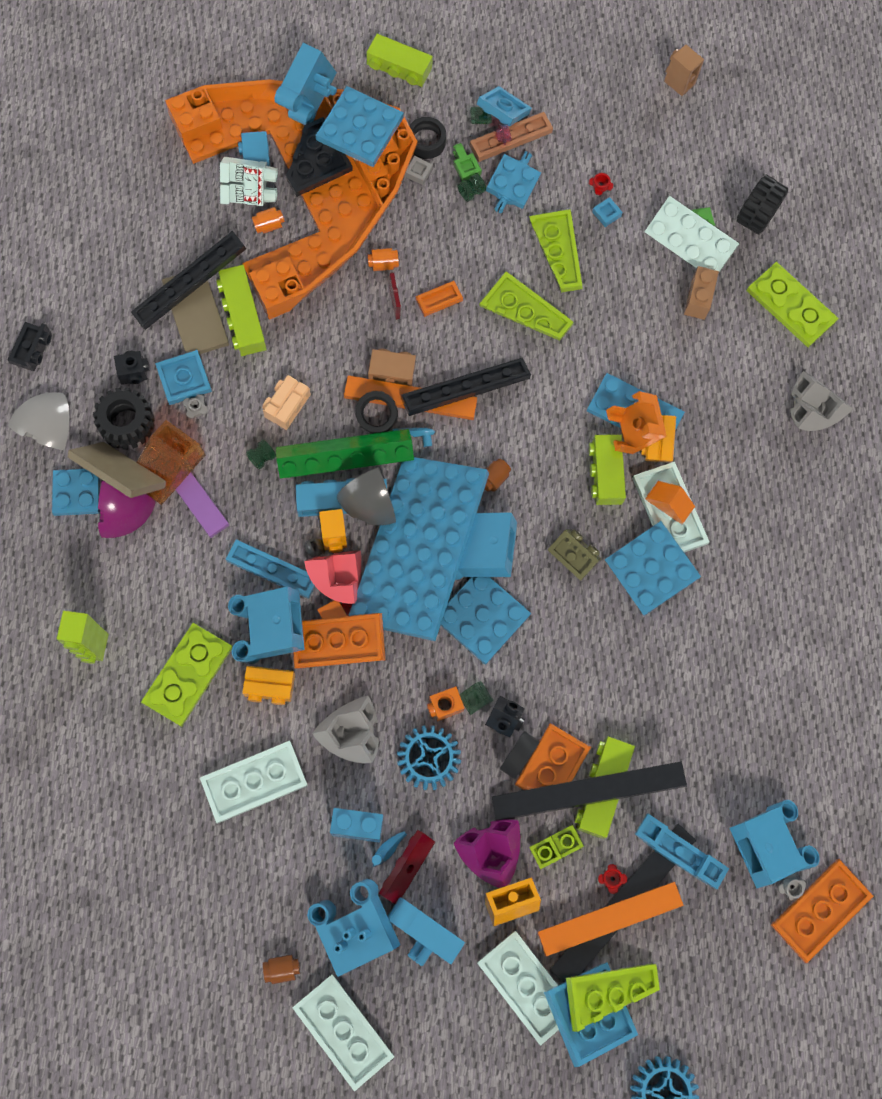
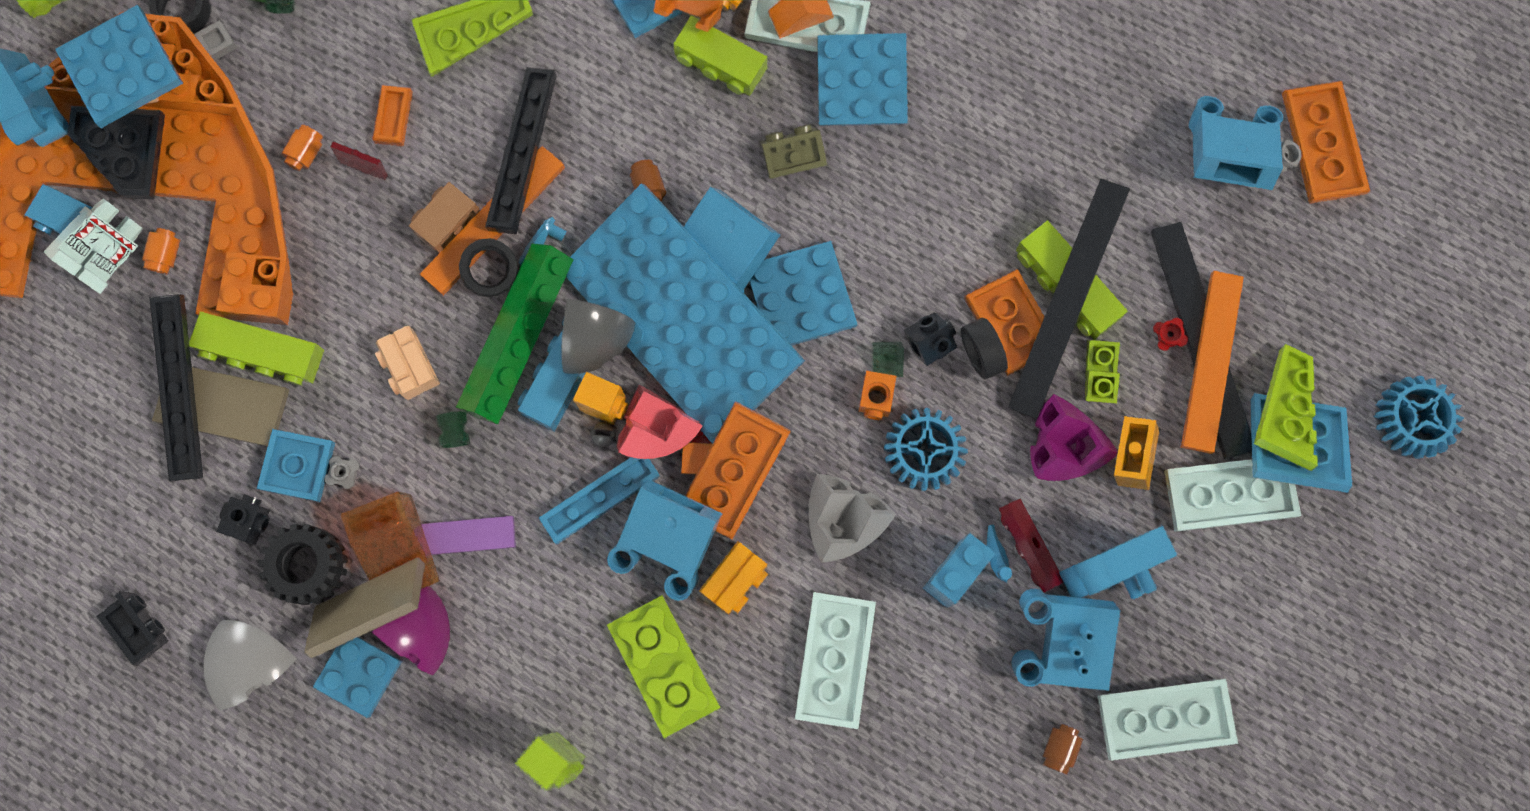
camera: 50 degrees left, 5 degrees up
(681, 852) = (1188, 243): dark azure slope -> none

